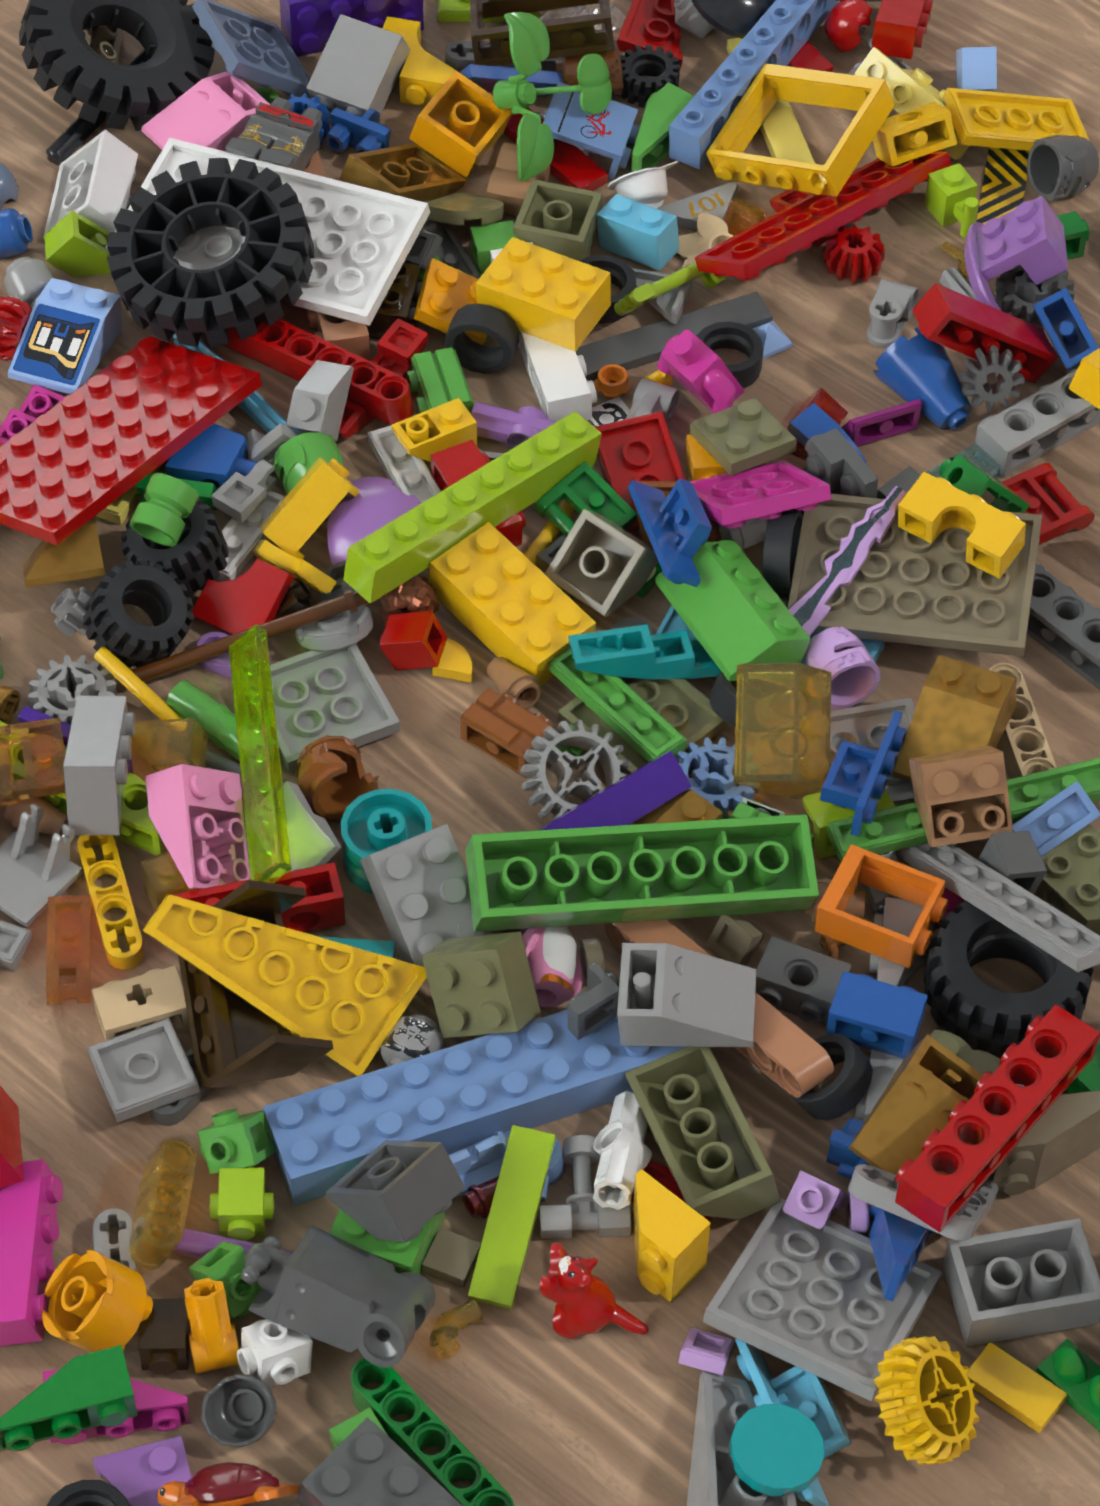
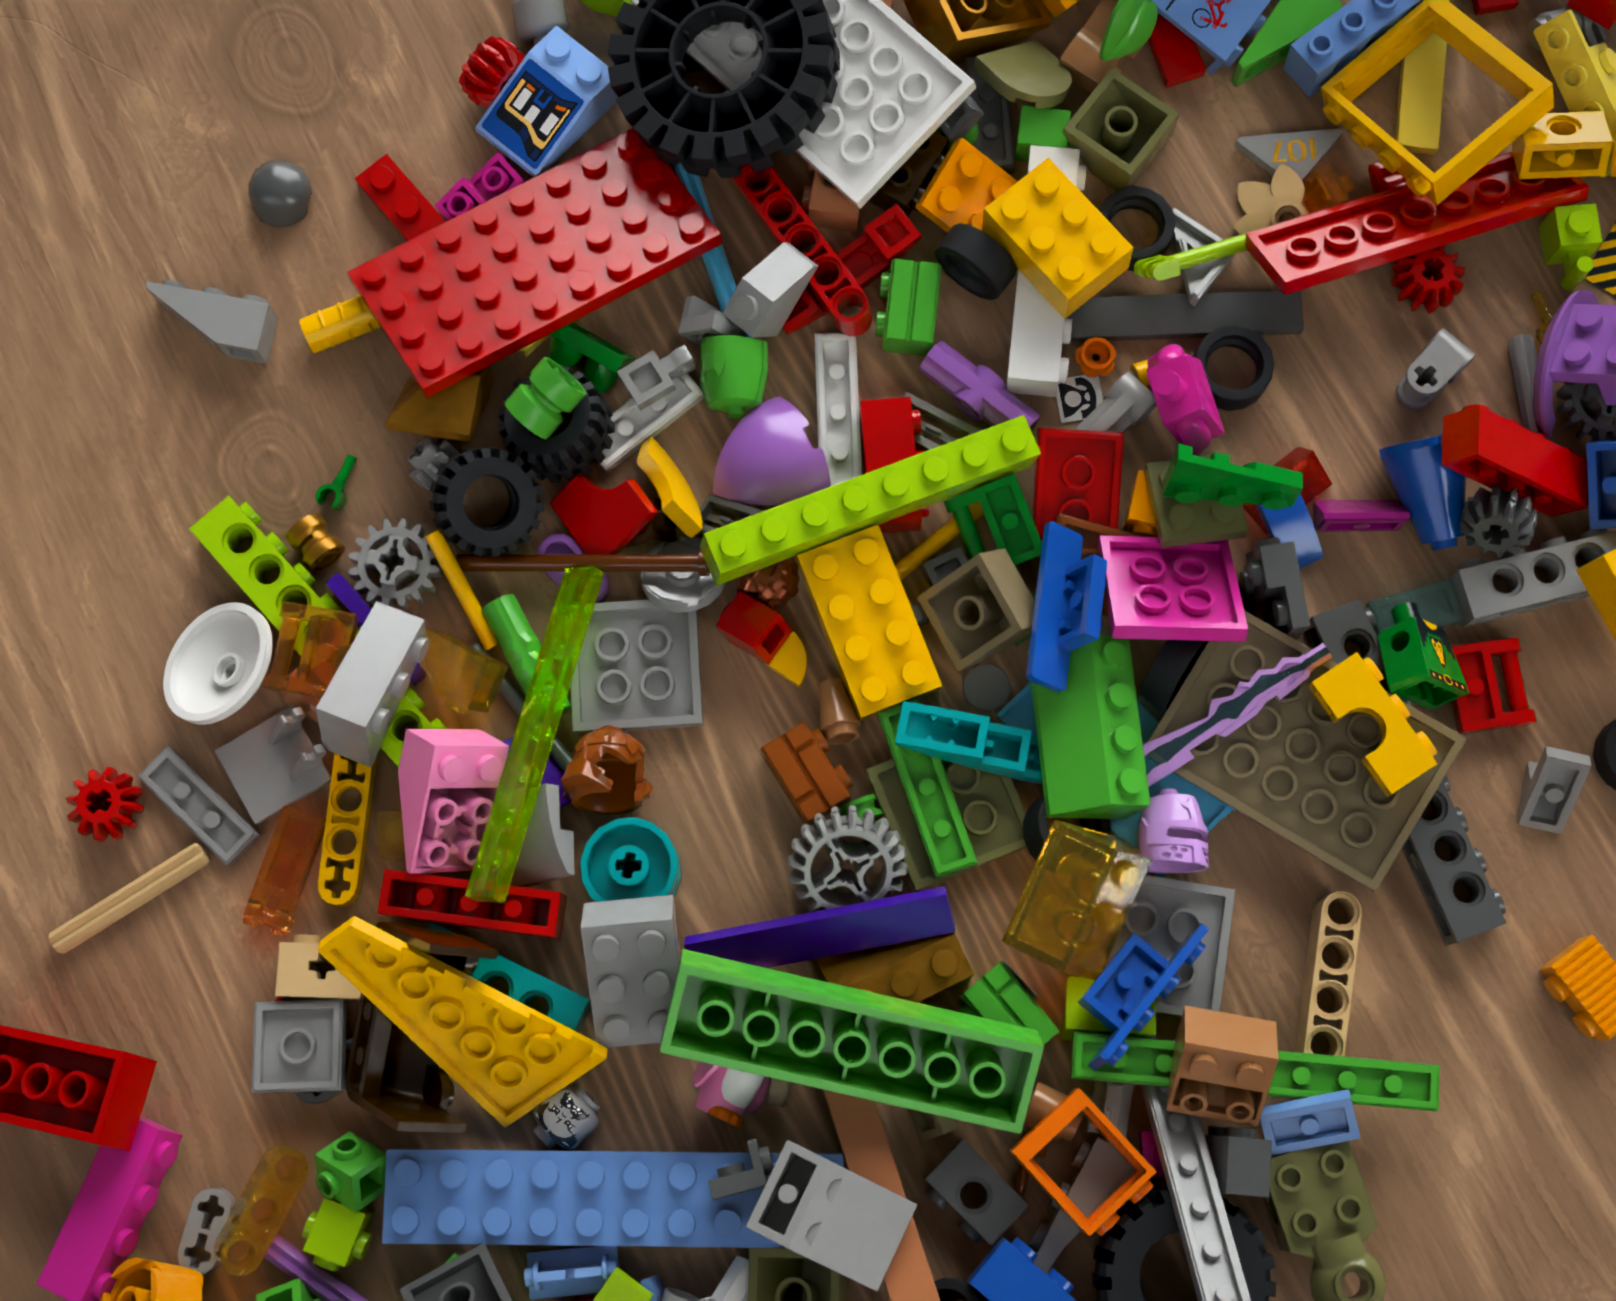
camera: 25 degrees right, 25 degrees up
(211, 457) = (640, 321): blue torso -> none
(308, 505) = (706, 426): yellow brick -> none
(436, 429) = (879, 369): yellow slope -> none
(481, 985) = (645, 1100): olive brick -> none
(638, 232) = (1203, 168): medium azure brick -> none
(644, 185) = (1237, 108): white piece -> none
(714, 774) = (972, 915): medium blue gear -> none
(757, 398) = (1216, 479): none -> green wing
(772, 339) = (1289, 354): light blue slope -> none
(957, 711) = (1259, 959): pearl gold slope -> none

